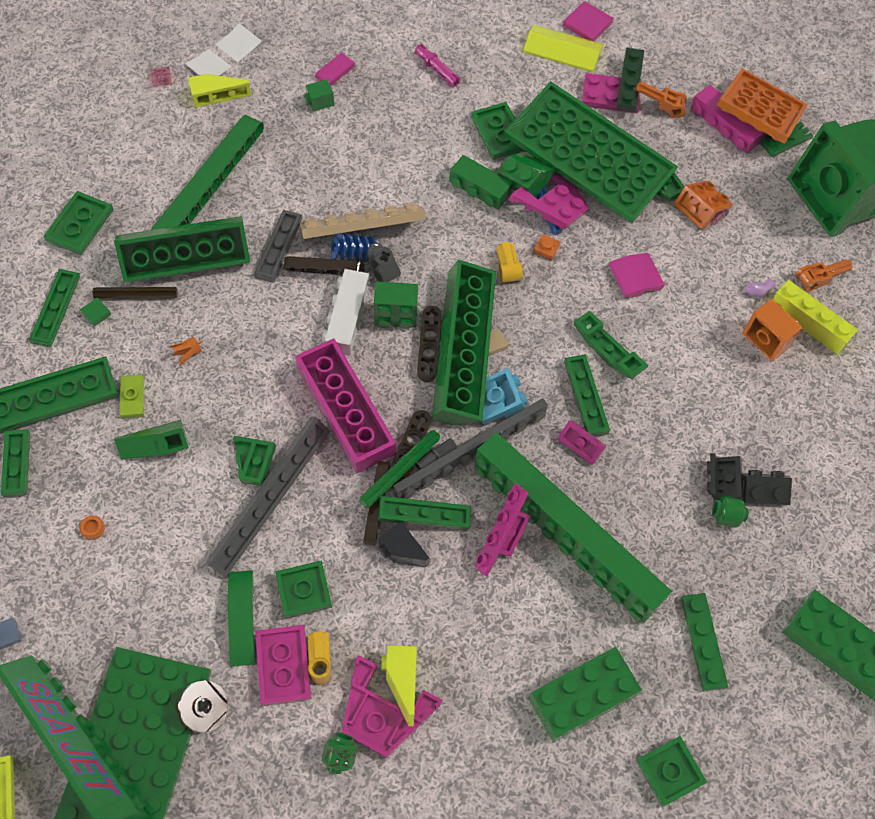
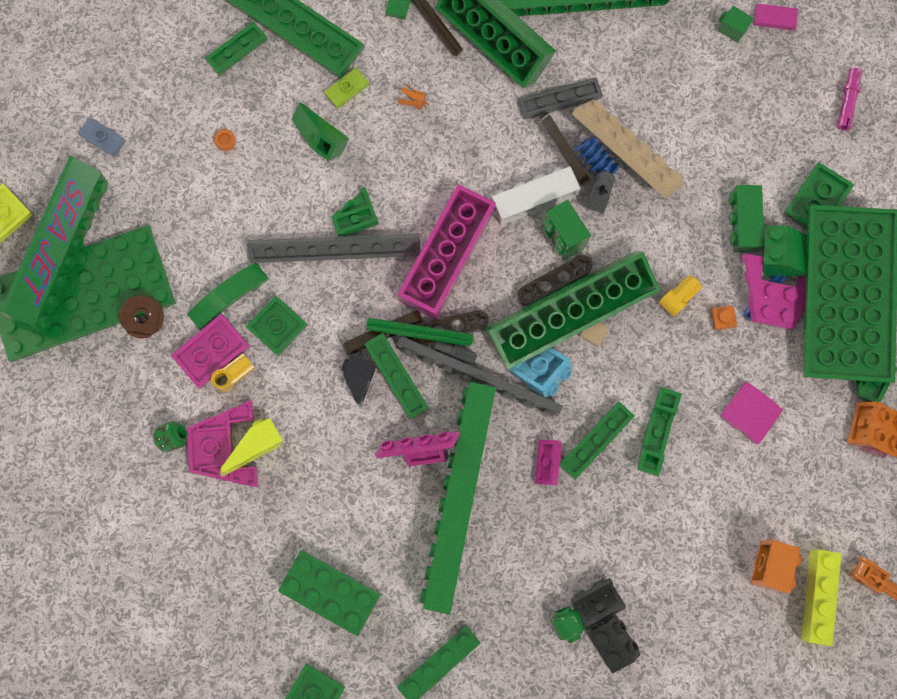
camera: 60 degrees right, 15 degrees up
(760, 290) = (817, 533): lavender arm -> none

